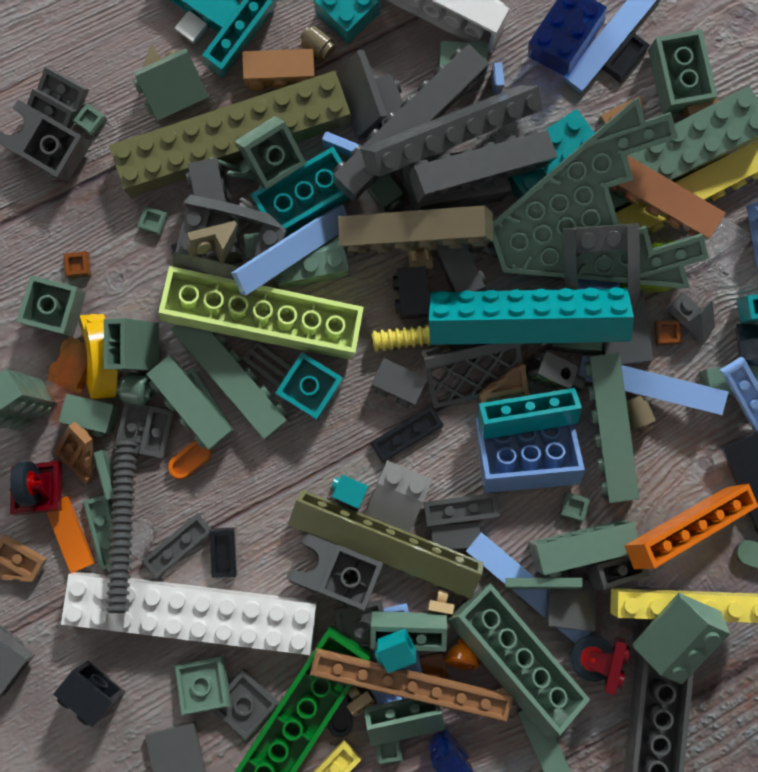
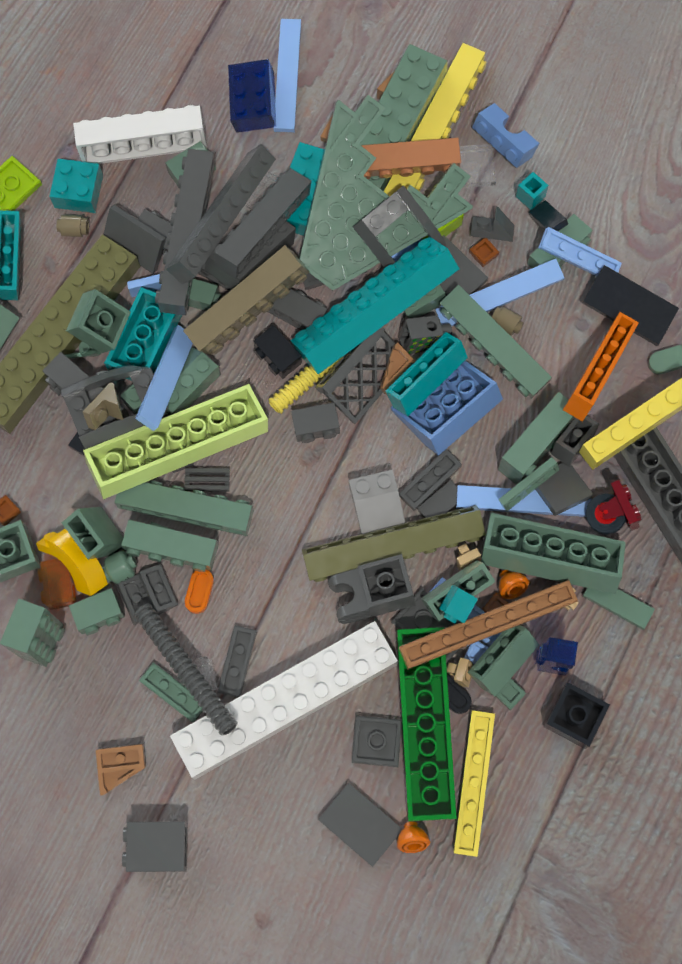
camera: 30 degrees left, 10 degrees down
(35, 487) = (95, 694): plate -> none
(71, 537) = (146, 713): orange tile -> none
(77, 452) = (108, 644): medium nougat wing -> none
(88, 693) = (251, 813): black brick -> none
(105, 472) = (143, 646): sand green tile -> none
(152, 221) = (40, 438): sand green tile -> none
(202, 685) = (334, 749): sand green tile -> none
(223, 552) = (276, 639): black tile -> none
(277, 68) = (56, 263): medium nougat brick -> none
(310, 386) = (251, 470): teal brick -> none
(349, 490) = (337, 525): teal brick -> none
(406, 433) = (349, 456): black tile -> none
(420, 258) = (262, 323): tan tile -> none
(497, 78) = (225, 161): light blue tile -> none
(574, 507) = (511, 420): sand green tile -> none
(625, 56) = (307, 85): black tile -> none
(682, 71) = (354, 66): sand green brick -> none
(682, 637) = (650, 442): sand green slope -> none

